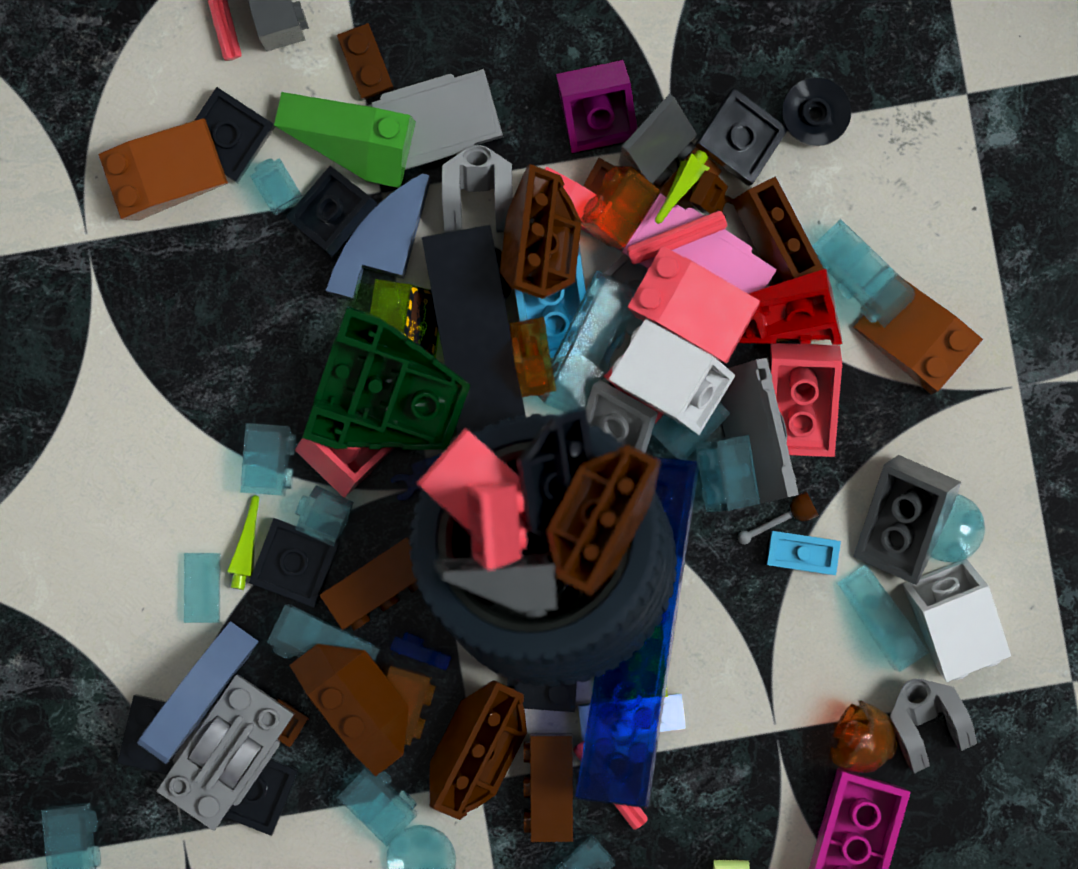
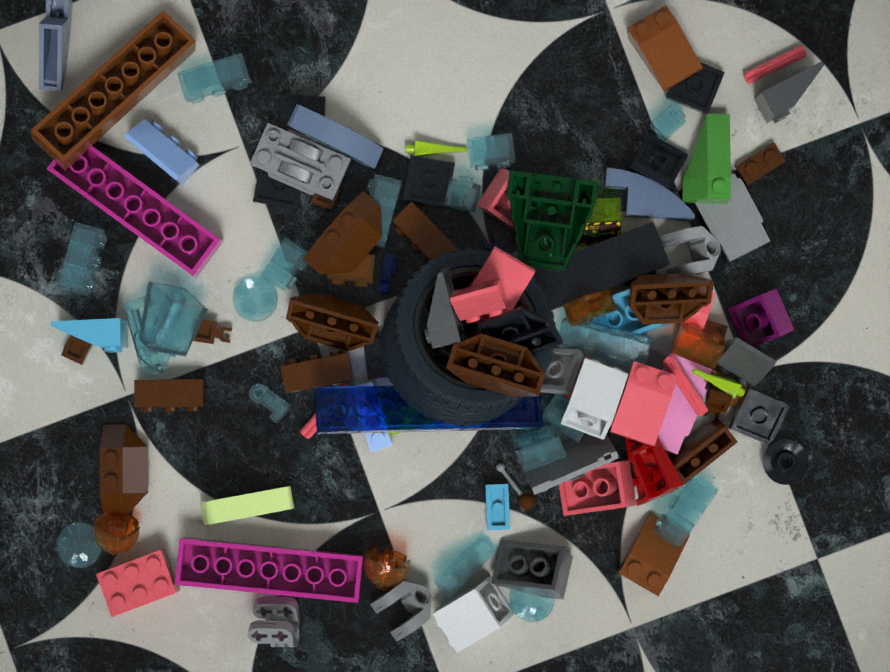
camera: 80 degrees right, 0 degrees up
(202, 587) = (401, 126): clear light blue tile -> none

